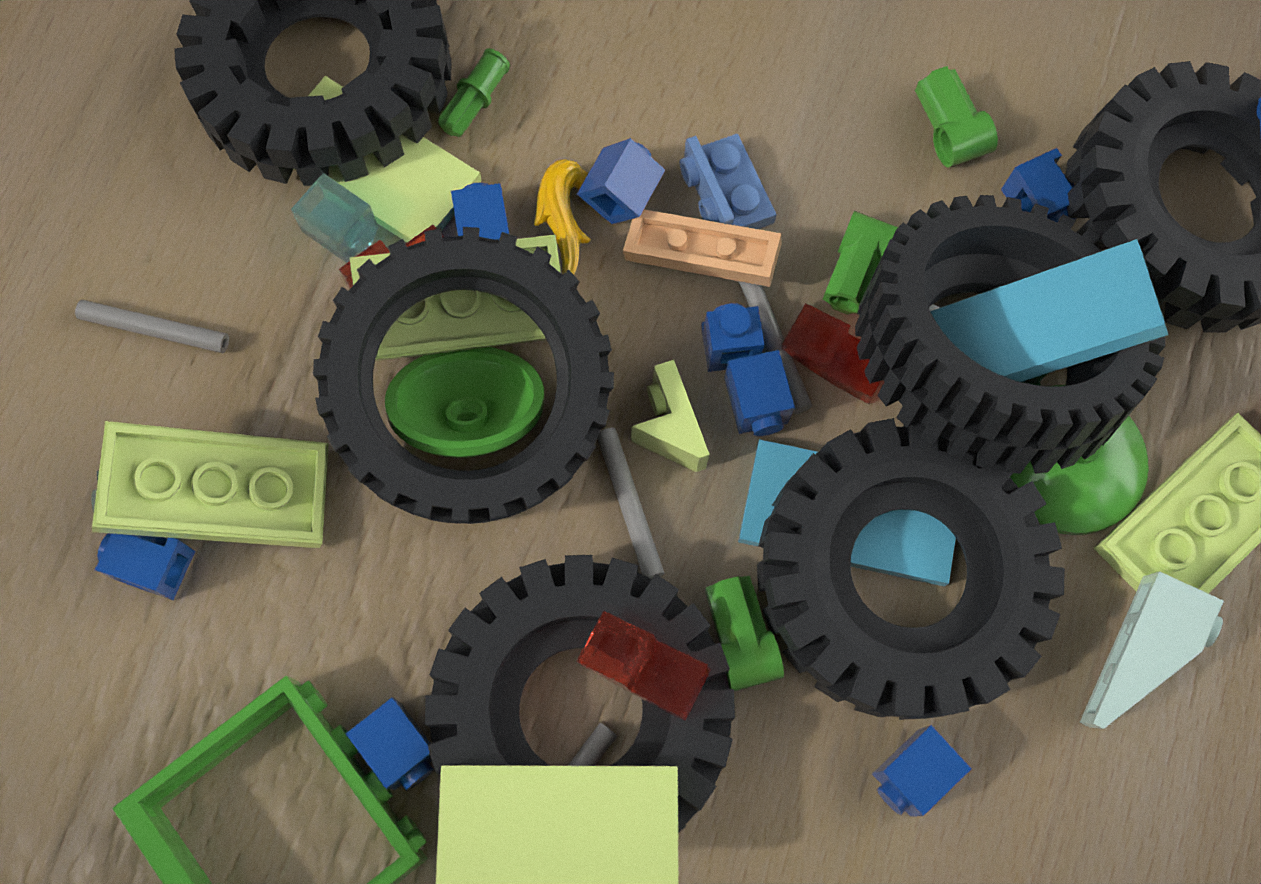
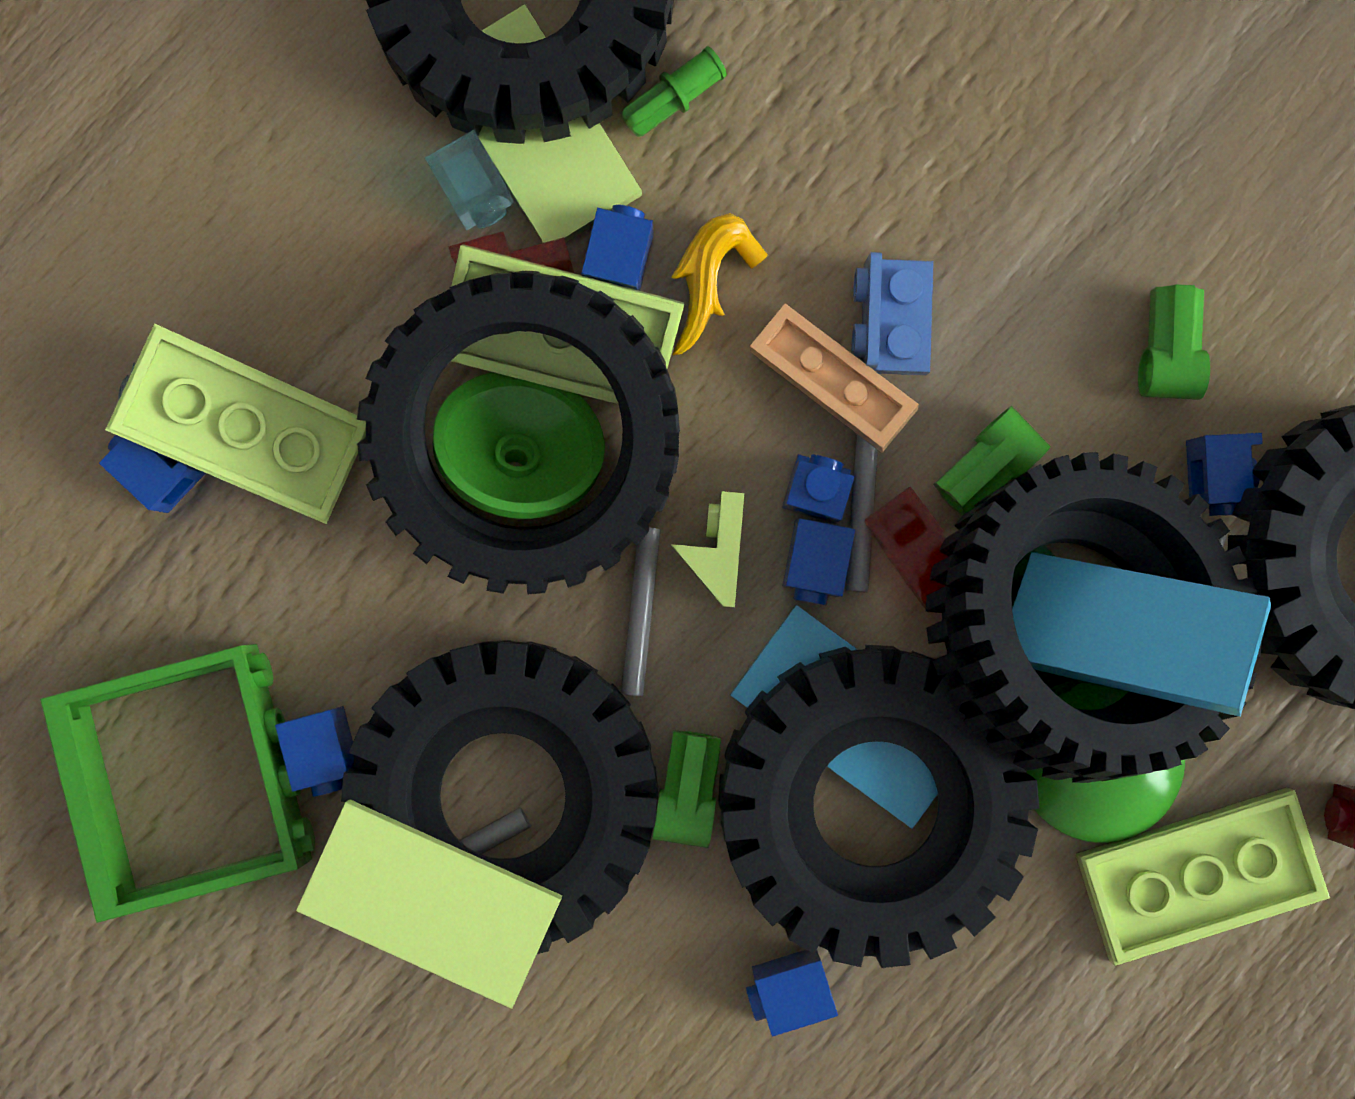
camera: 30 degrees right, 15 degrees up
(152, 326) = (244, 218): light grey piece -> none
(621, 181) = (783, 268): brick -> none
(644, 665) = (572, 791): clear red slope -> none
(1157, 638) = (1077, 979): light aqua slope -> none

